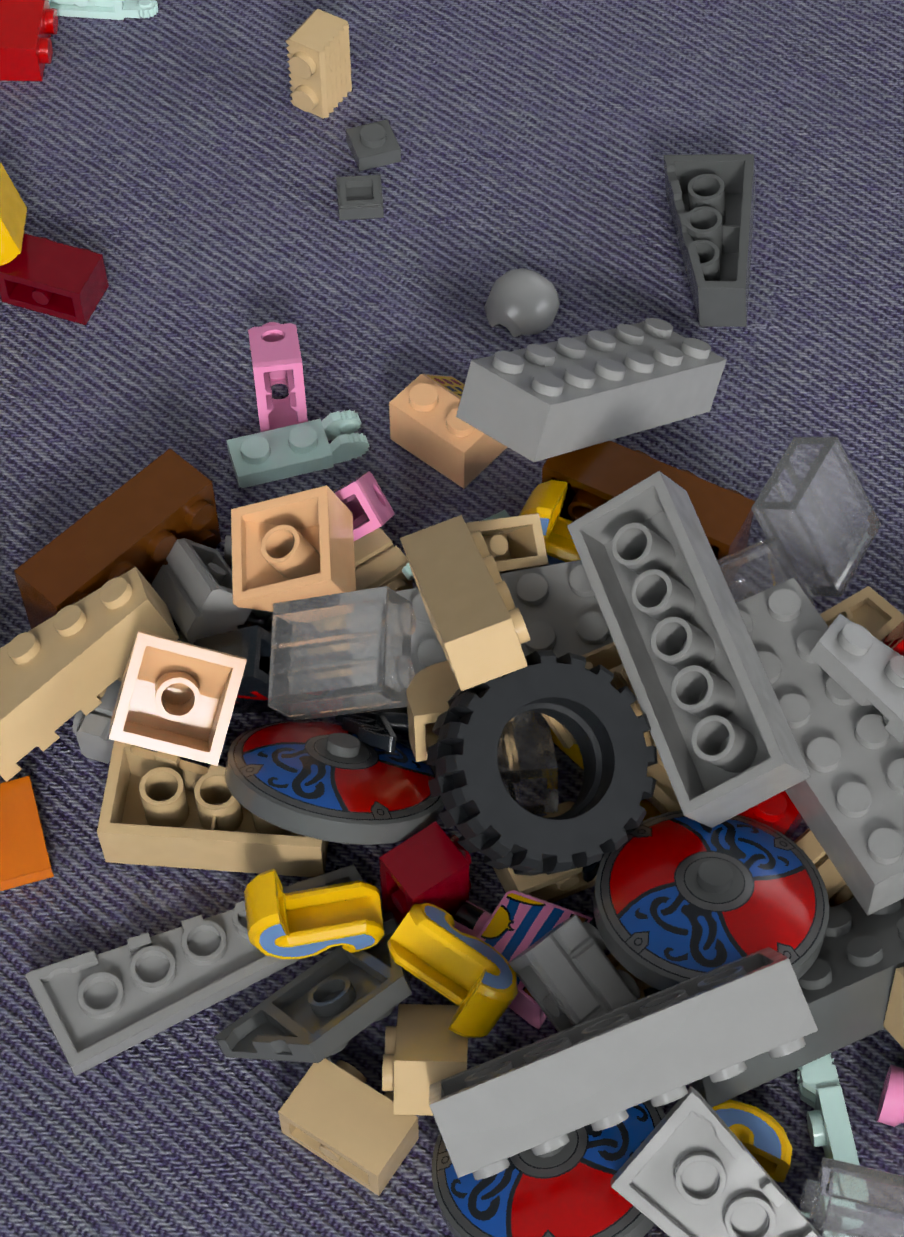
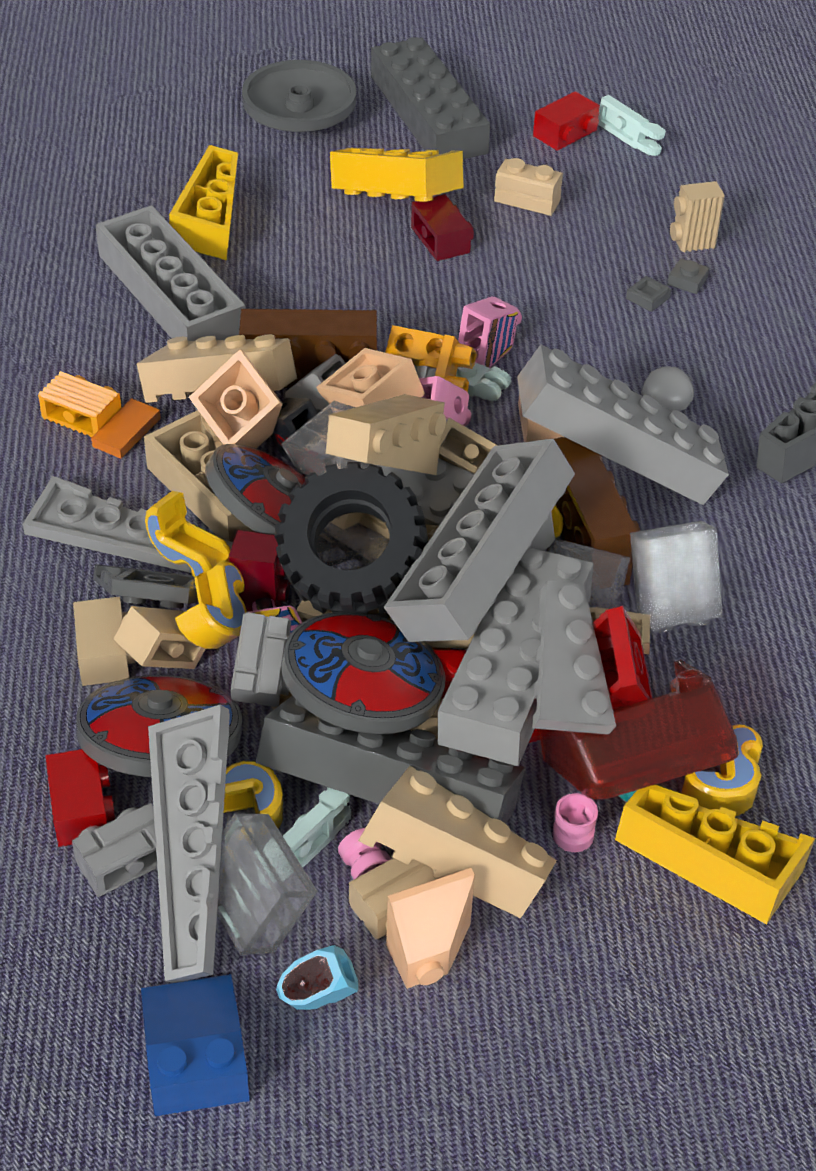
camera: 45 degrees right, 10 degrees down
(86, 153) = (528, 186): none -> tan brick
(274, 455) = (432, 353): none -> light orange hips
(620, 1062) = (212, 670): light grey brick -> none

